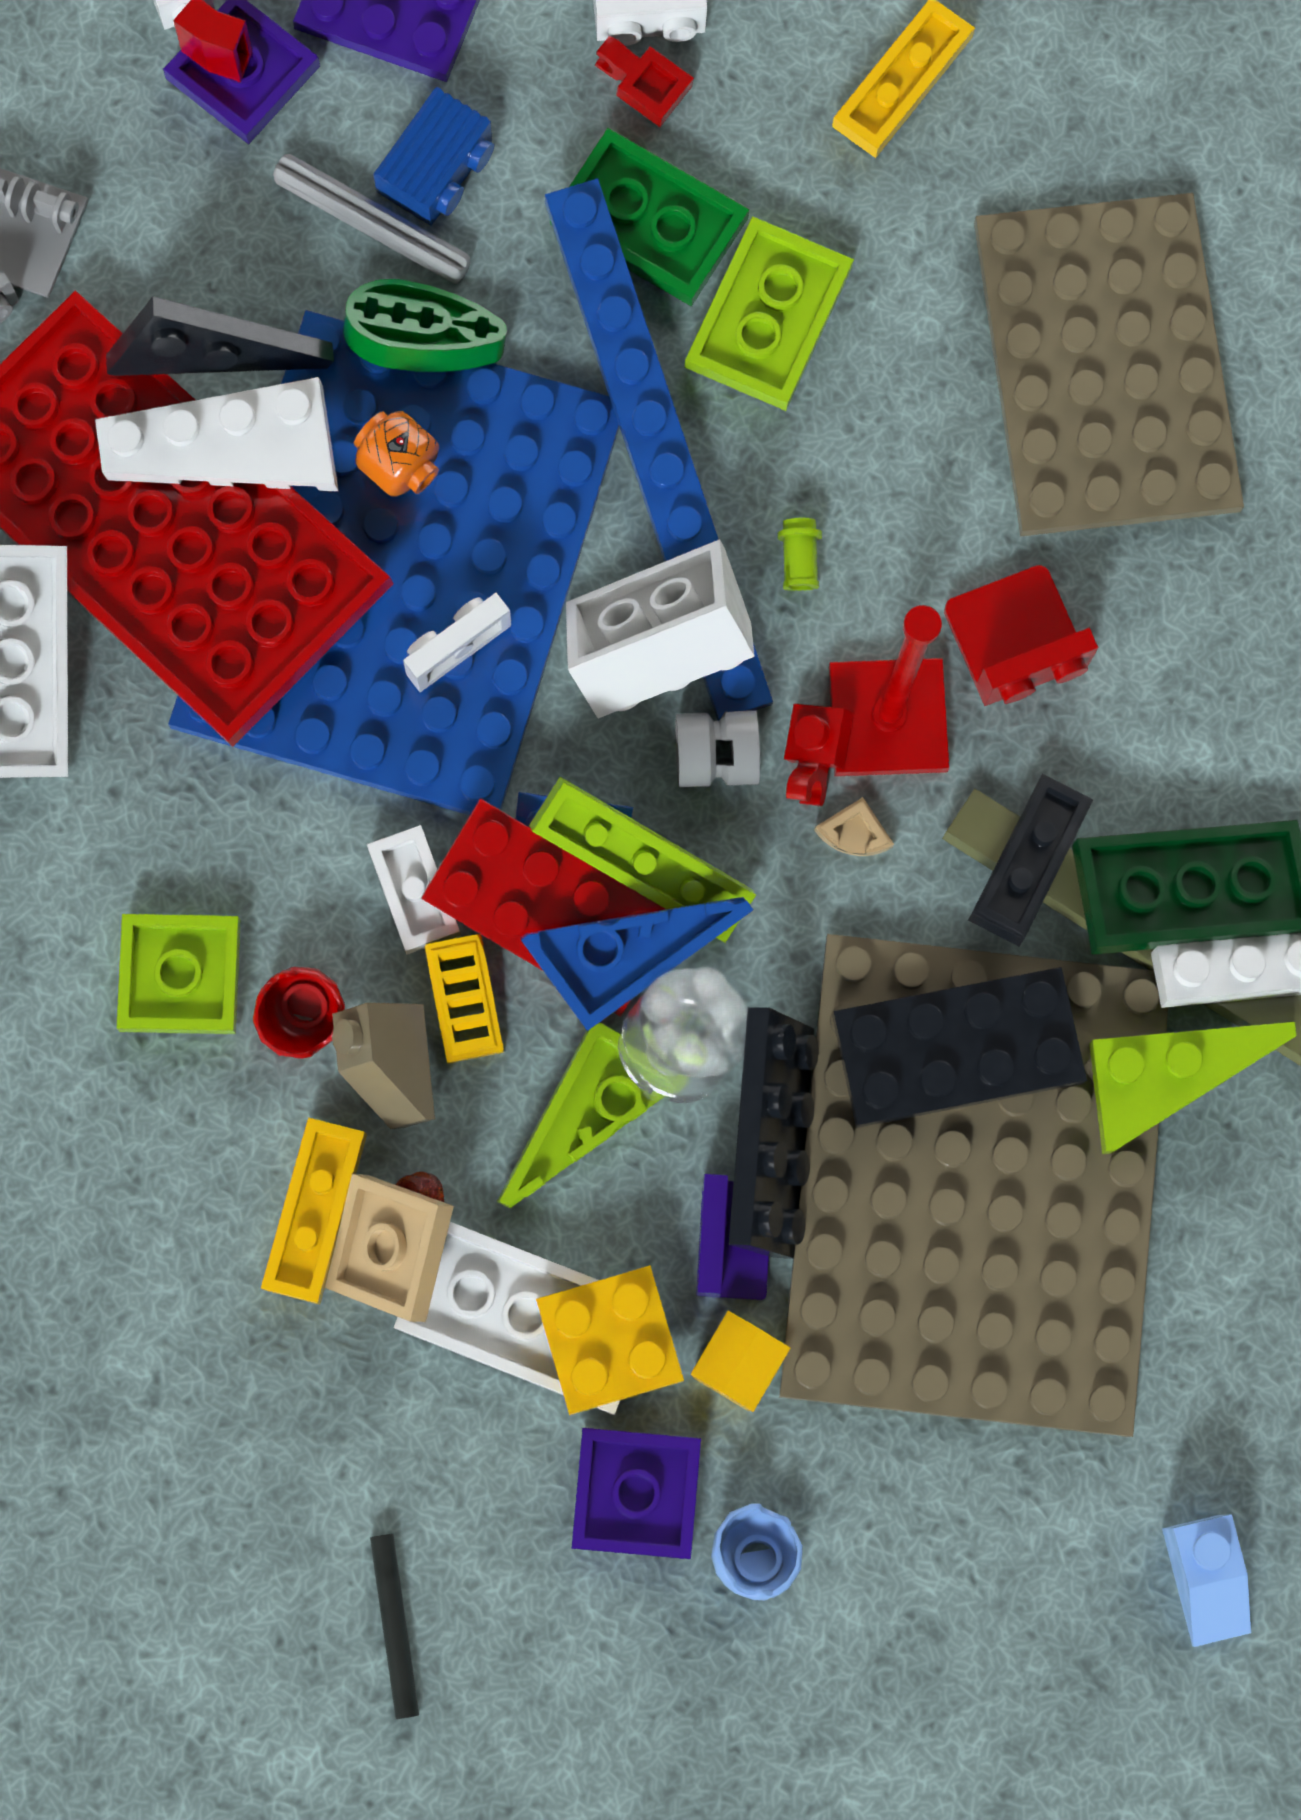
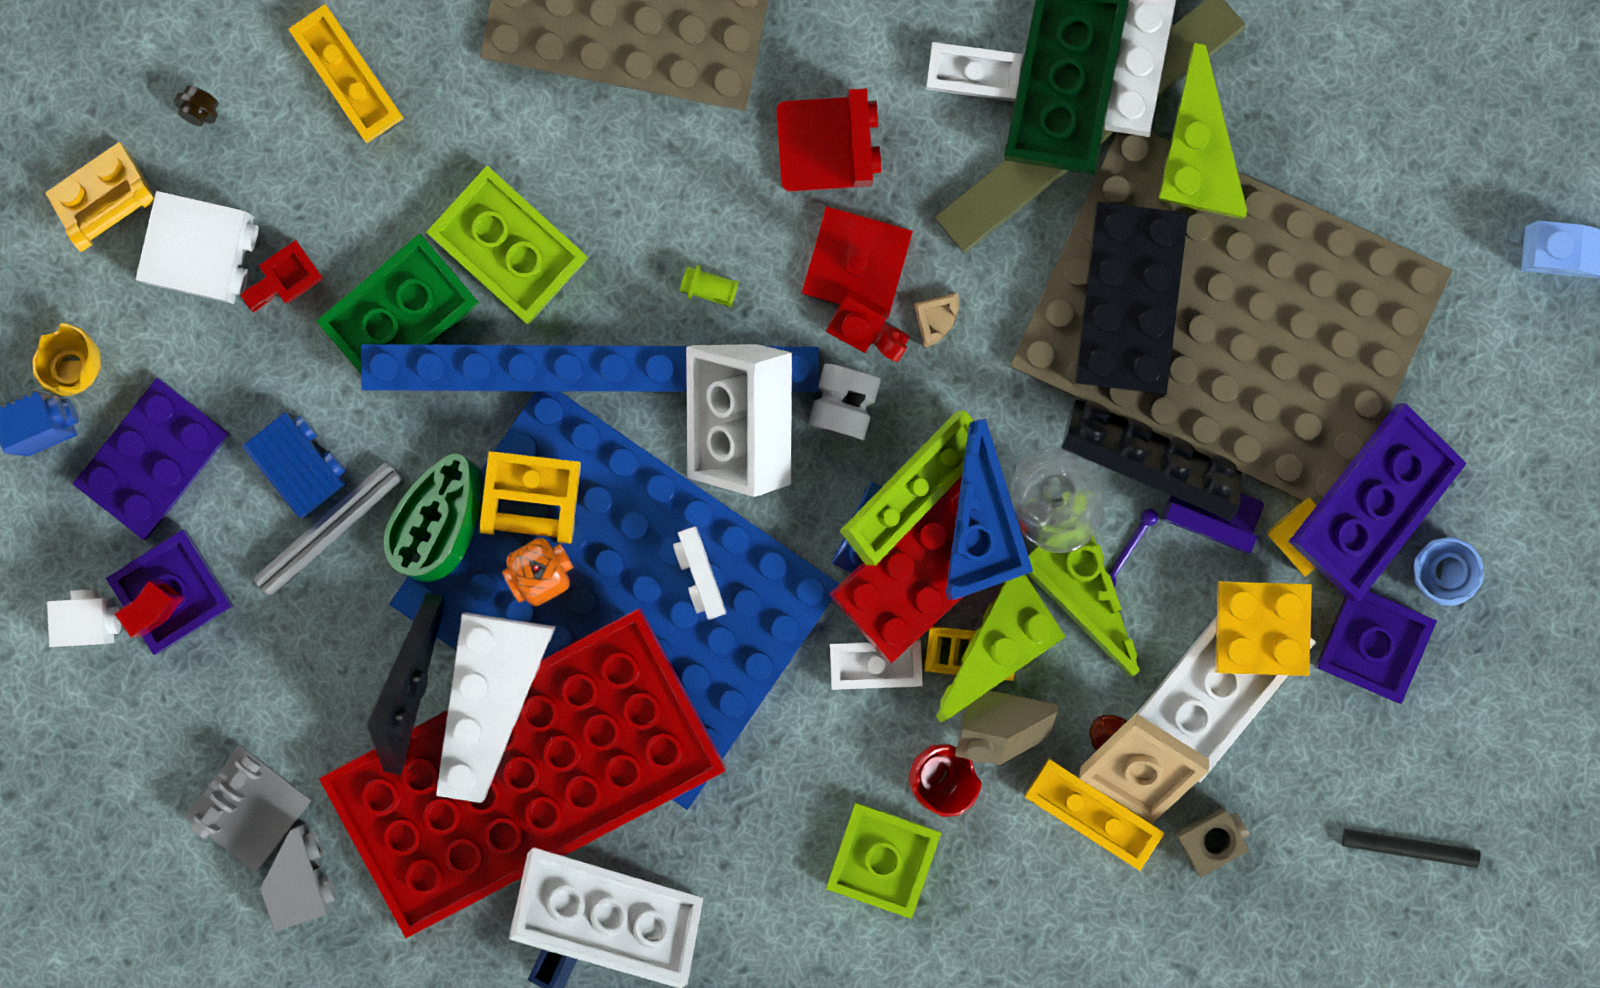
camera: 65 degrees left, 10 degrees up
(307, 1348) = (1192, 841): none -> dark tan brick
(498, 1035) = (1012, 635): none -> lime wing
(501, 415) = (531, 481): none -> yellow plate
(699, 1163) = (1148, 518): none -> dark purple hinge
(813, 1432) = (1377, 502): none -> dark purple plate
(1030, 860) = (1006, 194): black tile -> none
(1163, 776) = (973, 71): none -> white plate

